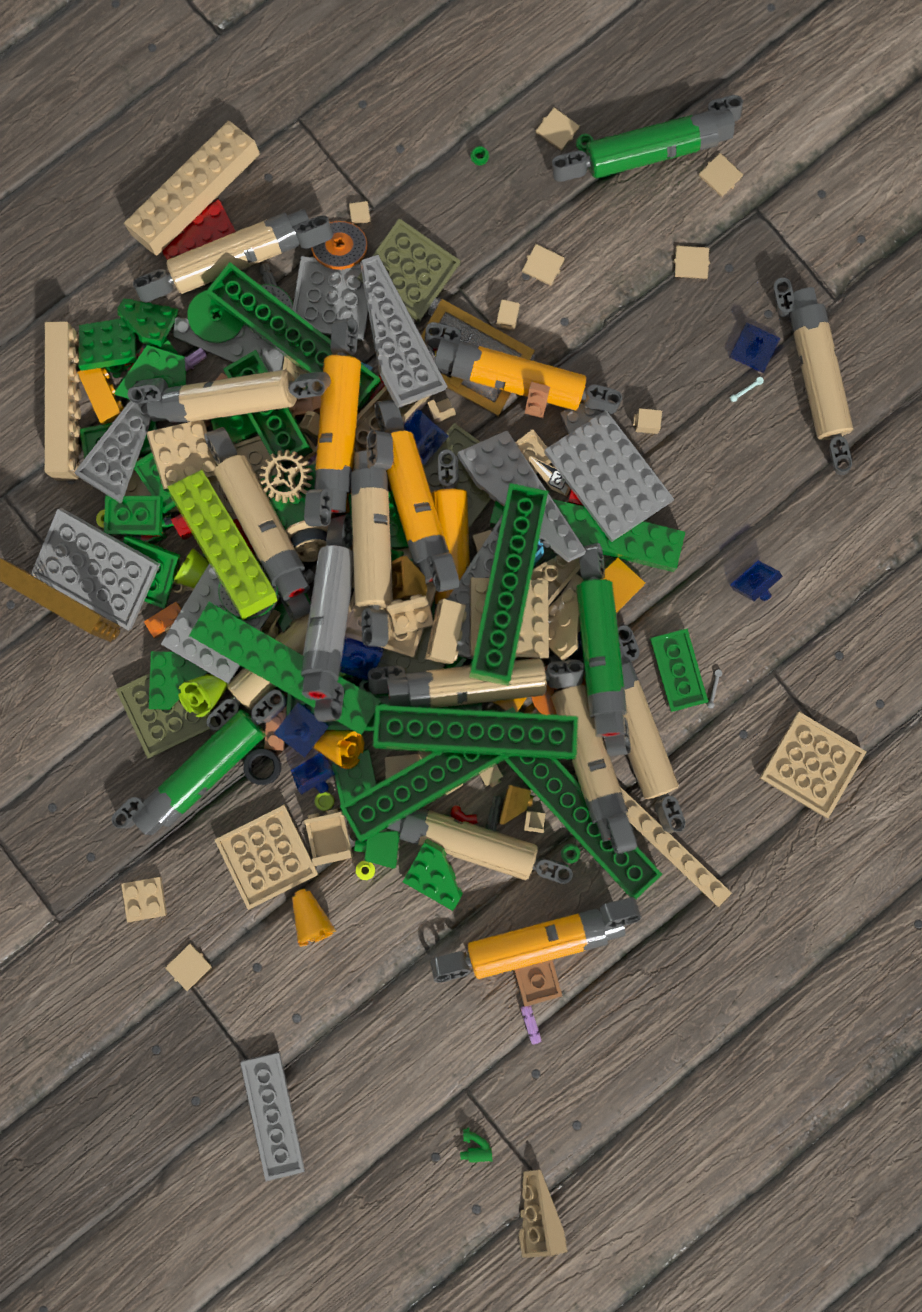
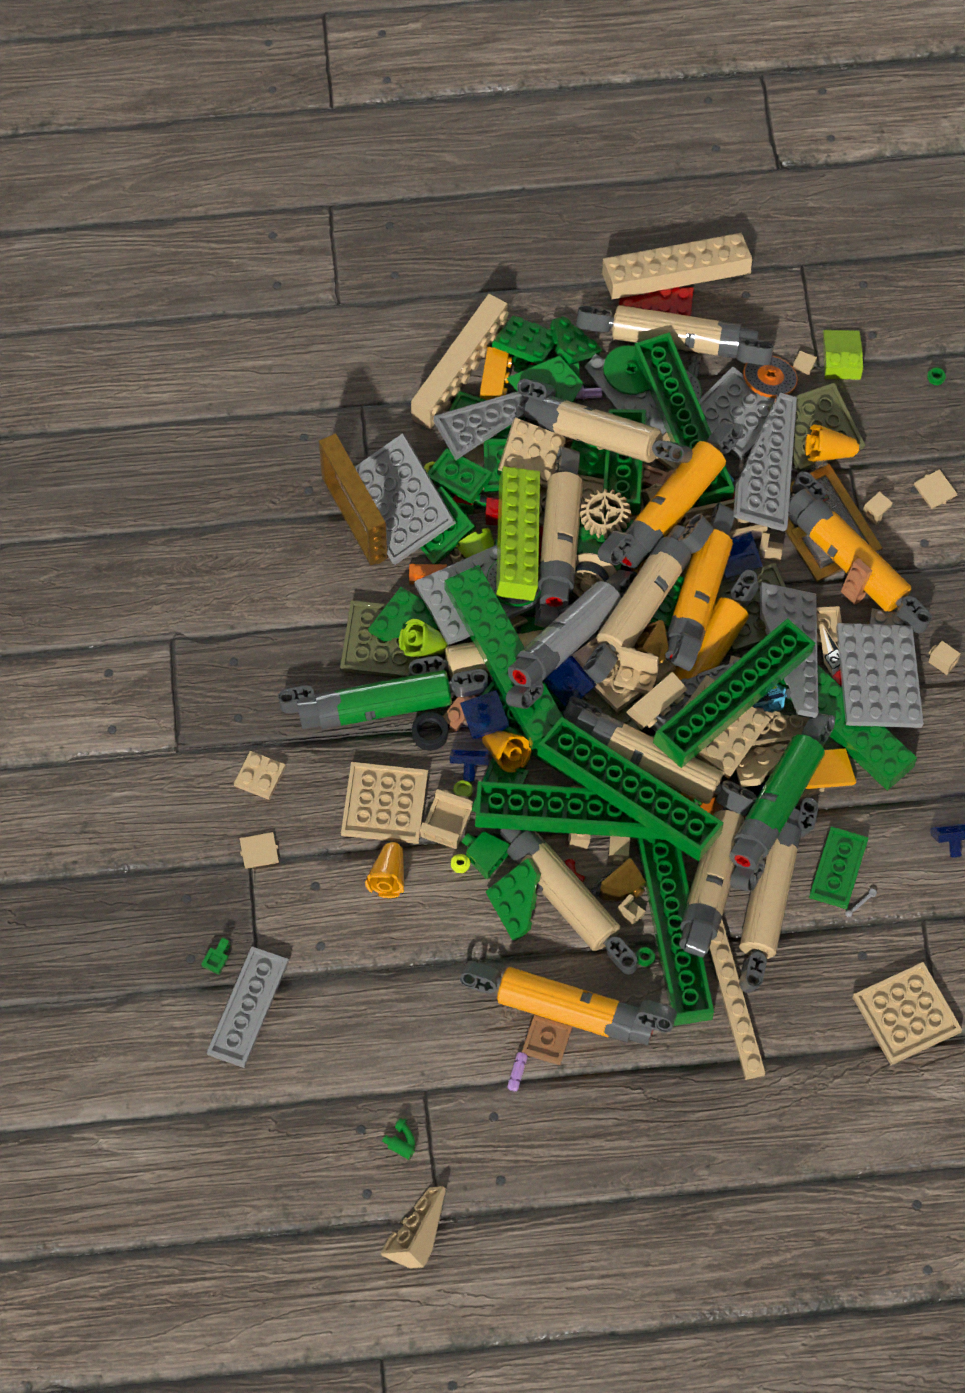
camera: 30 degrees right, 20 degrees down
(217, 1091) = (216, 959): none -> green plate
(387, 184) = (842, 354): none -> lime slope
(432, 283) = (829, 444): none -> light orange cone

